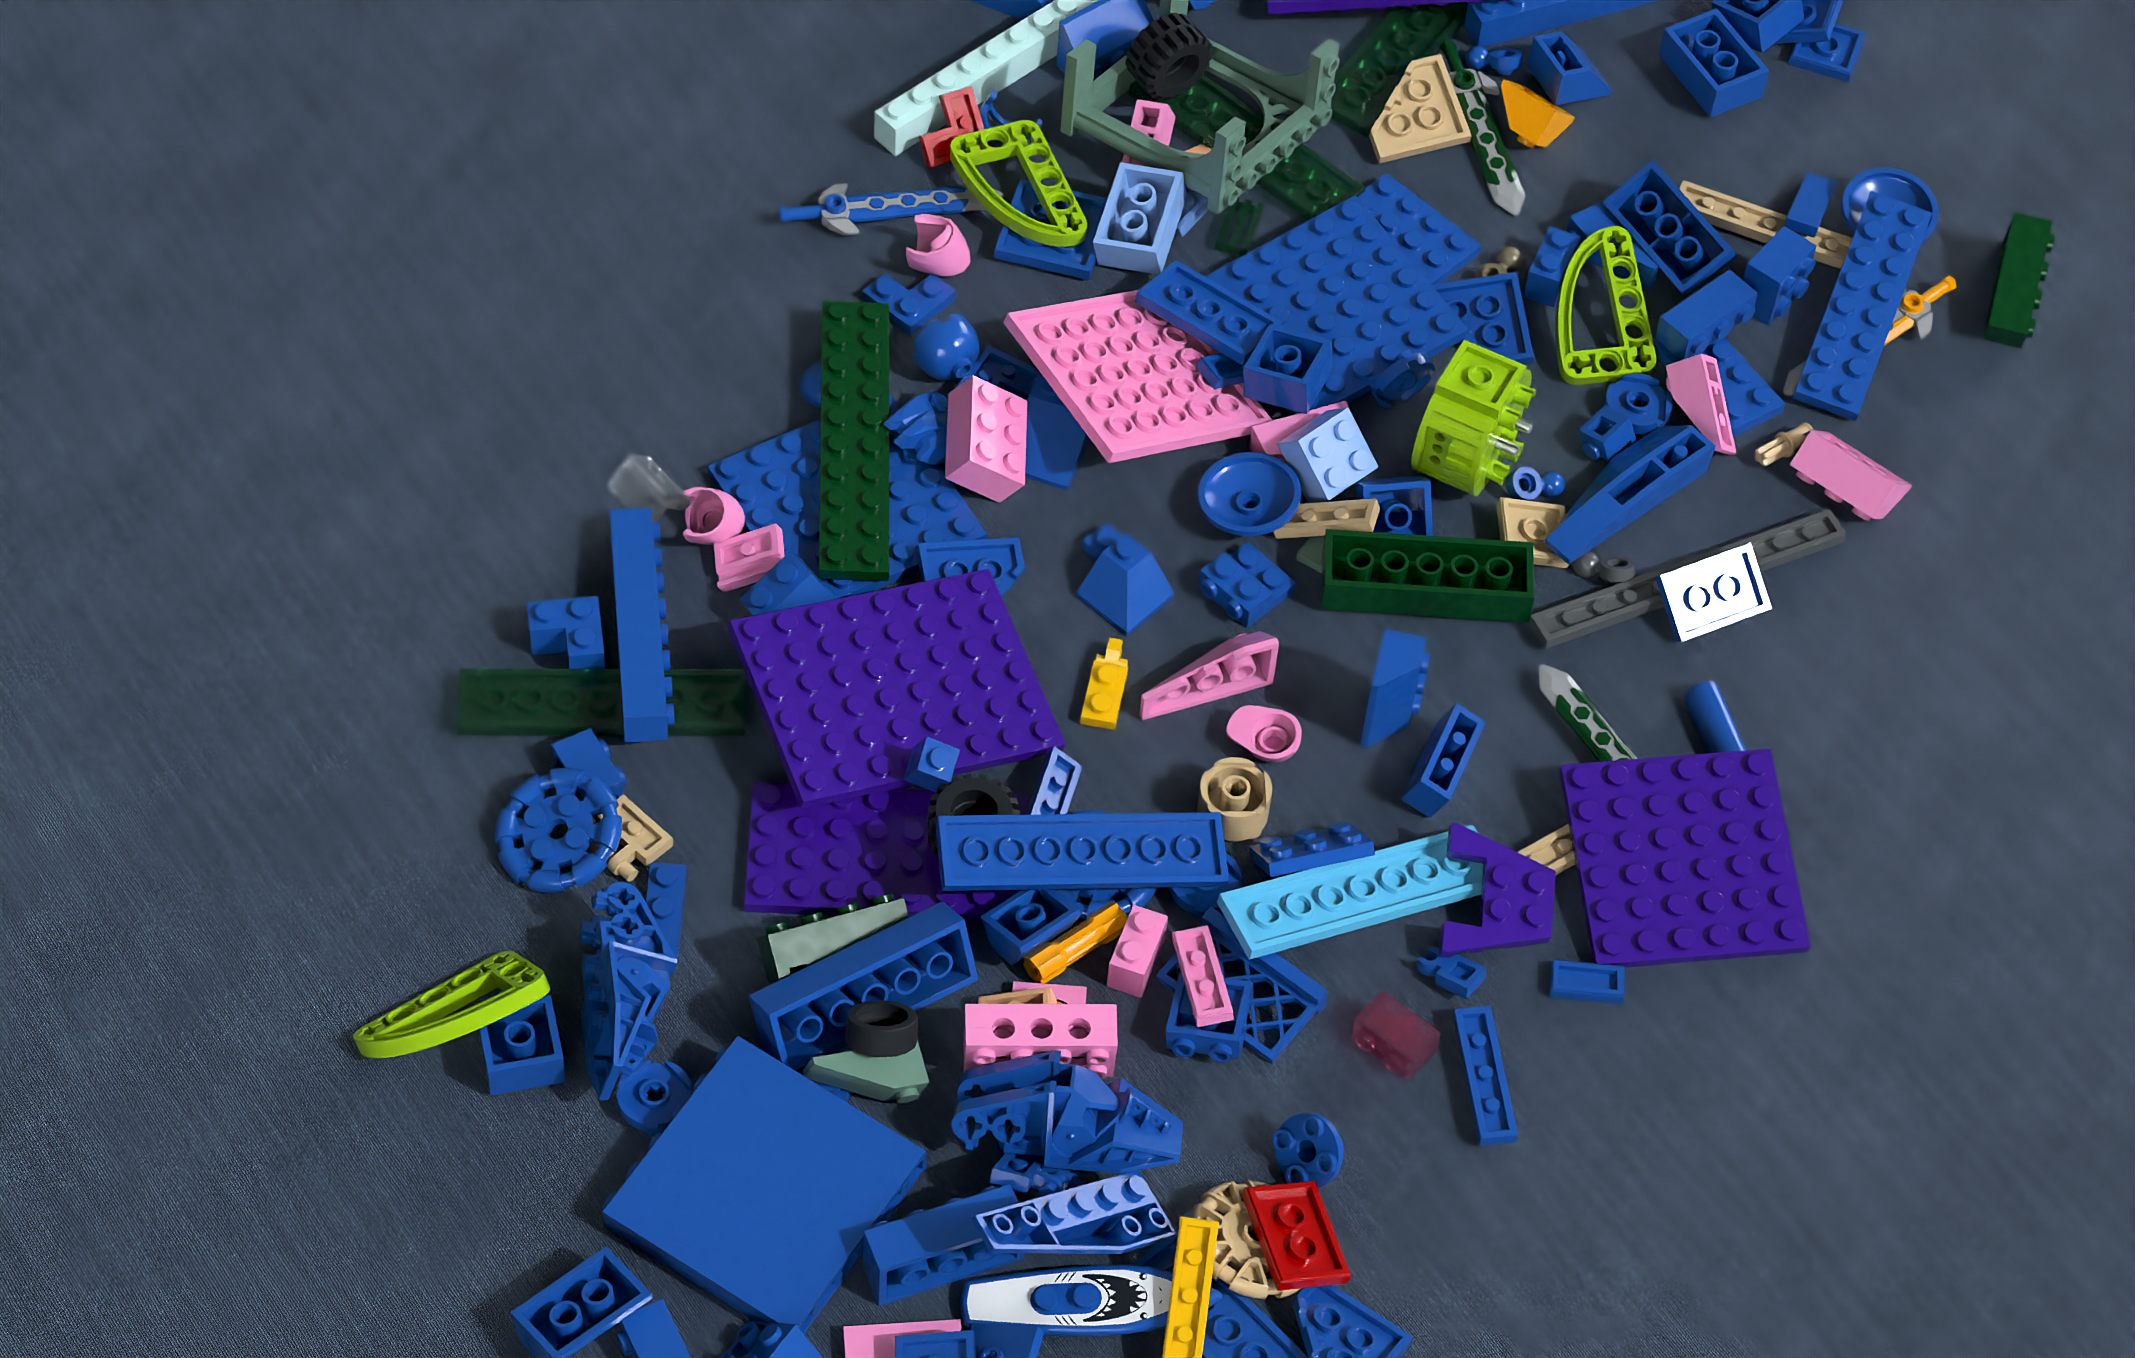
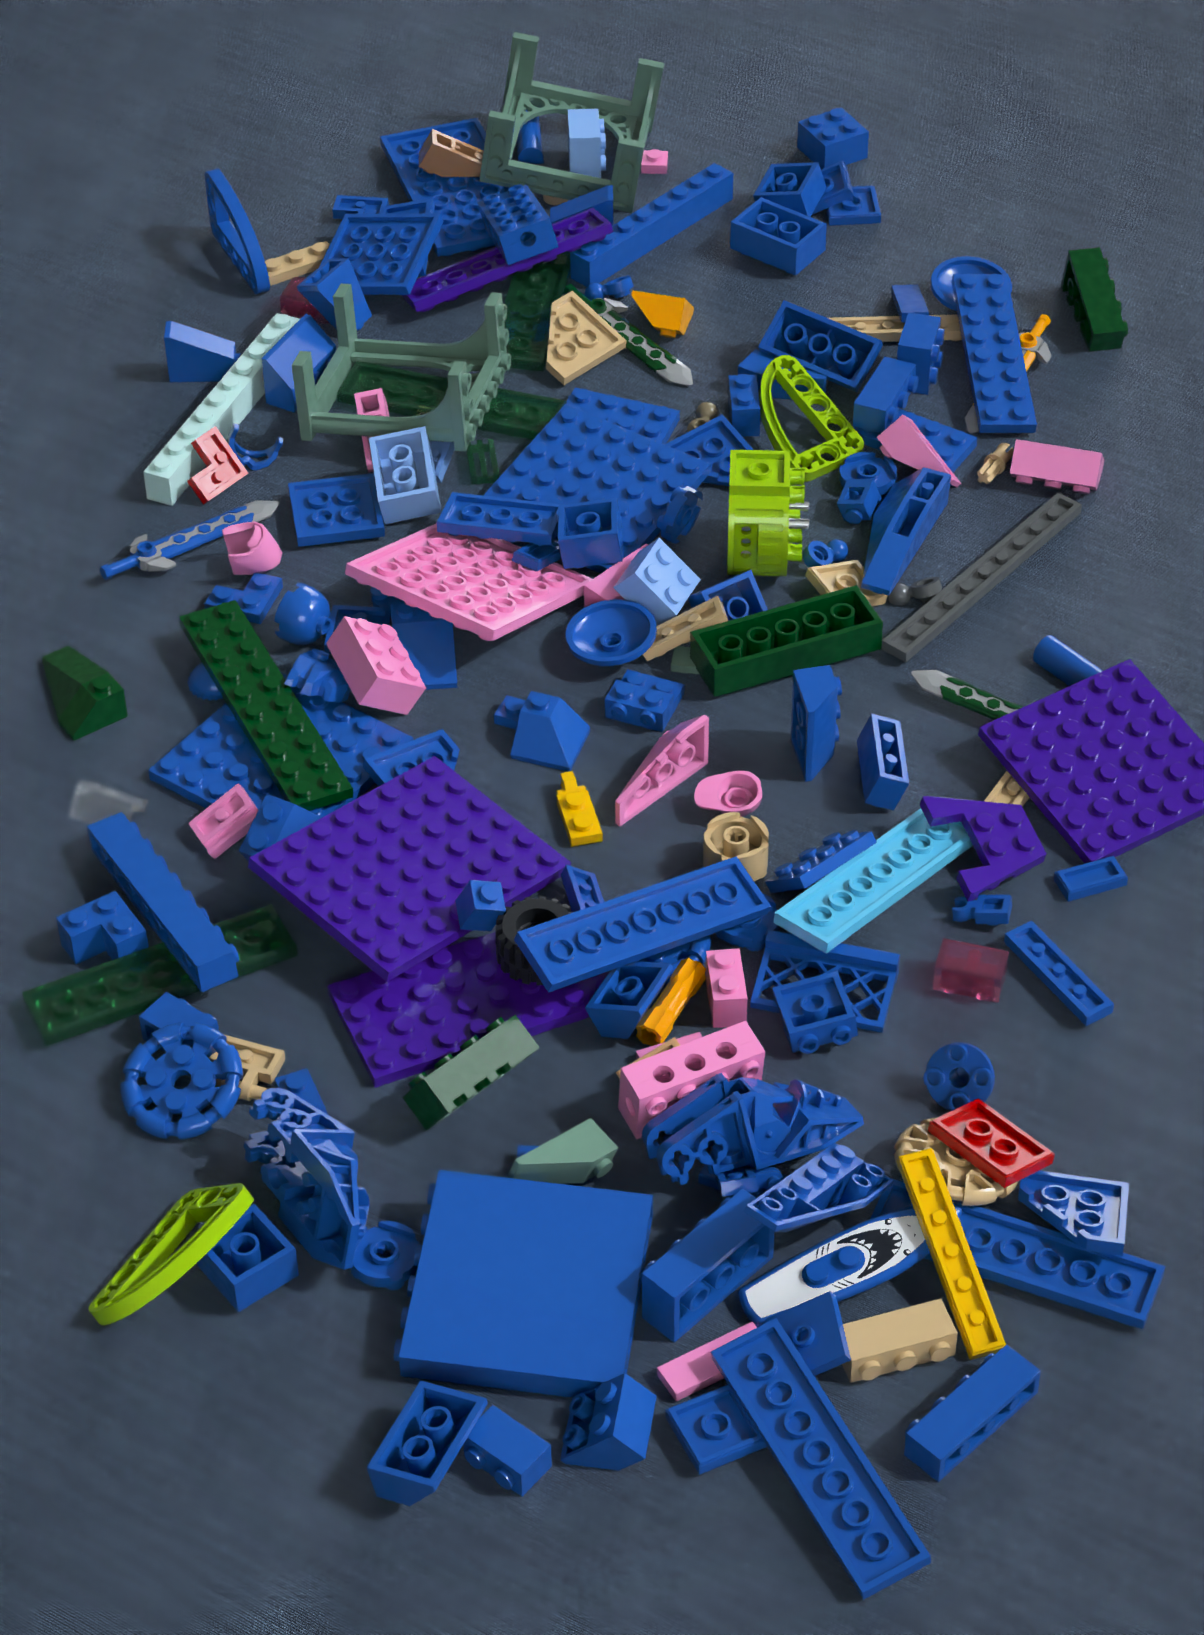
camera: 20 degrees left, 10 degrees down
(688, 348) = (82, 693): none -> dark green wedge
(712, 516) = (175, 801): bright pink piece -> none
(881, 1028) = (558, 1117): black tyre -> none
(901, 964) = (522, 1093): blue brick -> none
(1016, 144) = (277, 454): lime beam -> none
(1169, 56) = (363, 354): black tyre -> none
(1202, 976) = (794, 981): bright pink tile -> none
(1564, 70) = (669, 275): blue slope -> none
(1713, 592) = (1011, 575): plate -> none

